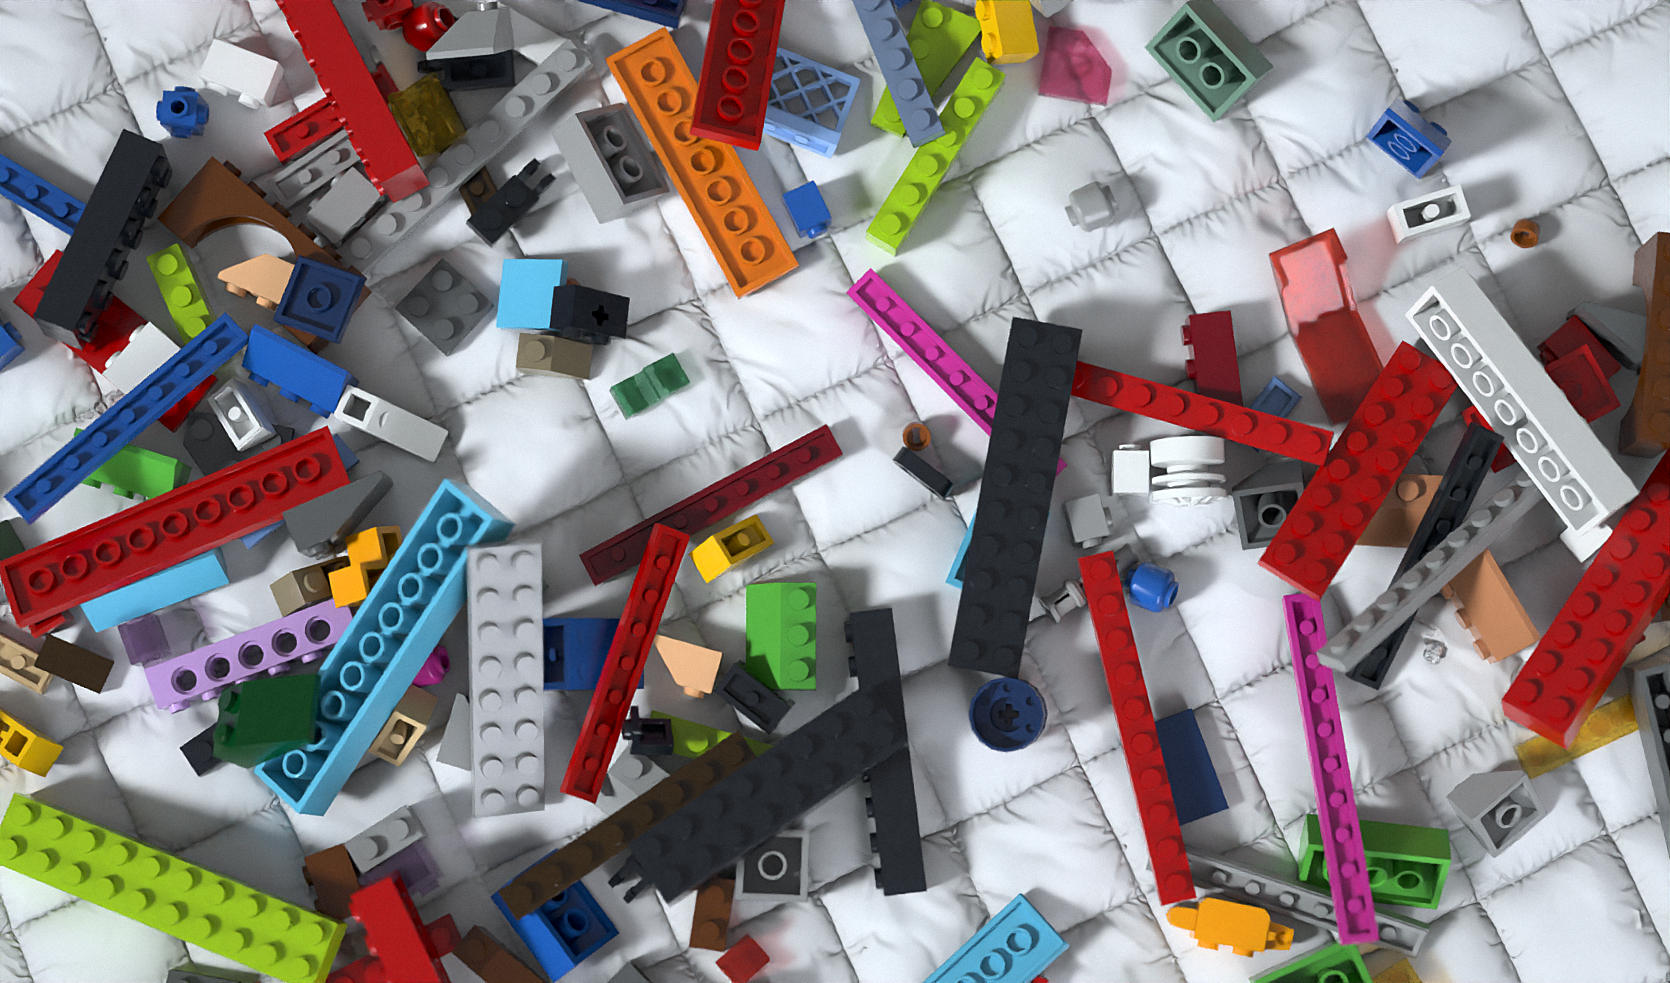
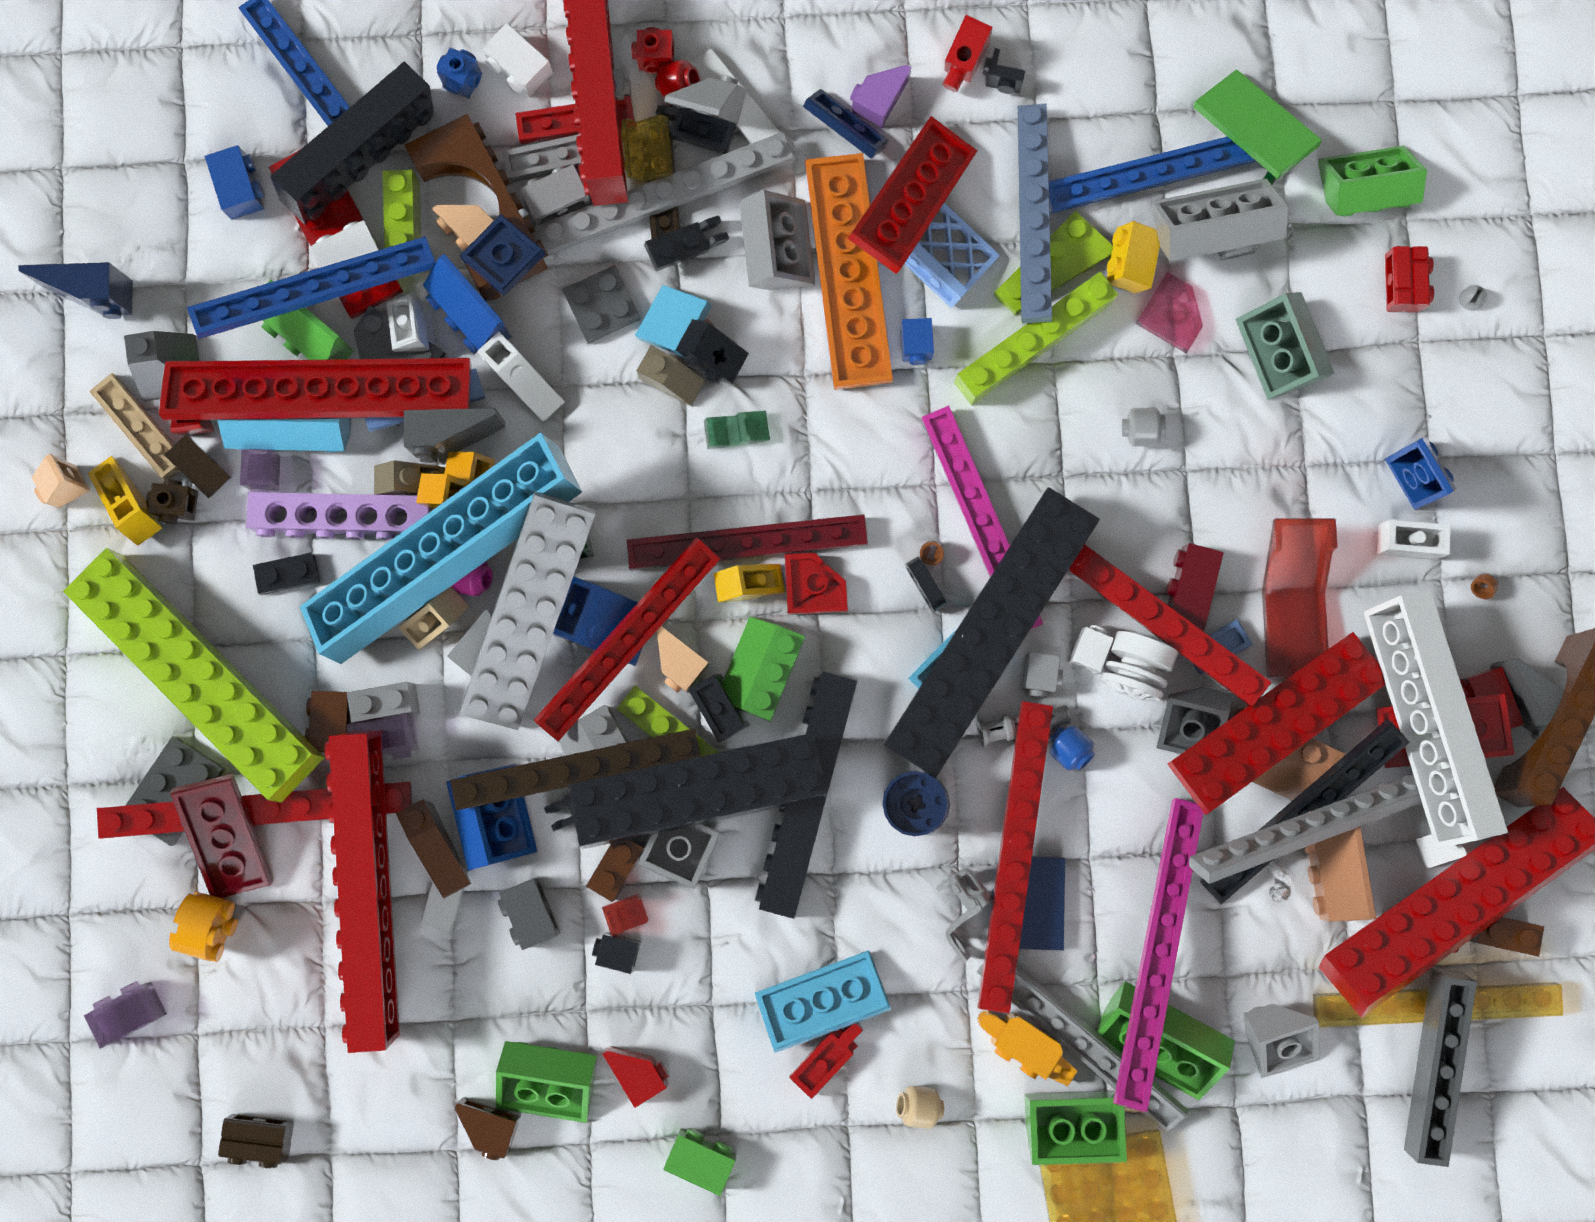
camera: 20 degrees right, 0 degrees up
(74, 713) = (172, 501): none -> dark brown brick
(266, 718) = (324, 568): dark green slope -> none
(647, 735) = (621, 703): black bracket -> none
(802, 524) = (813, 586): none -> red plate
(1107, 793) = (971, 900): none -> light grey piece

